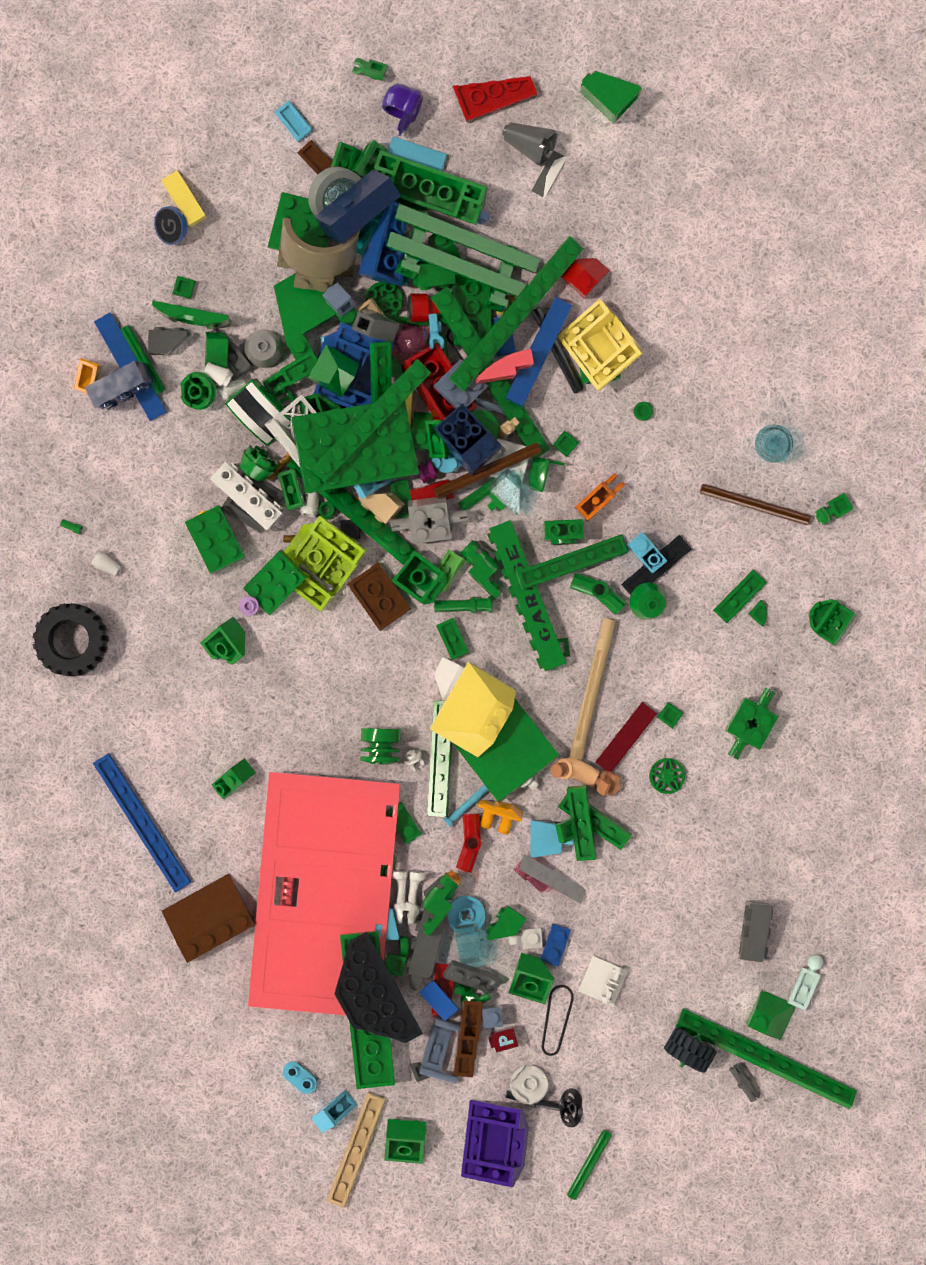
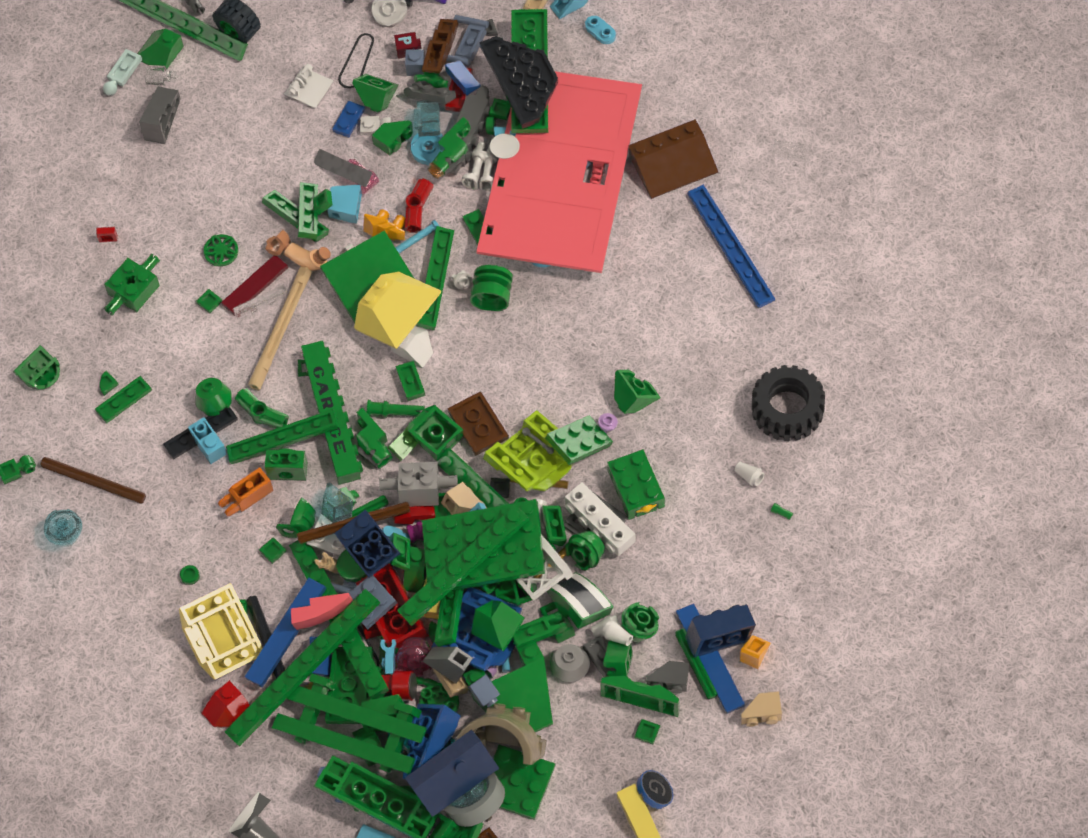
camera: 165 degrees left, 25 degrees down
(75, 316) = (764, 708): none -> tan slope
(233, 778) = (637, 273): green slope -> none
(384, 915) = (504, 146): none -> white sticker
(787, 781) = (106, 234): none -> red tile

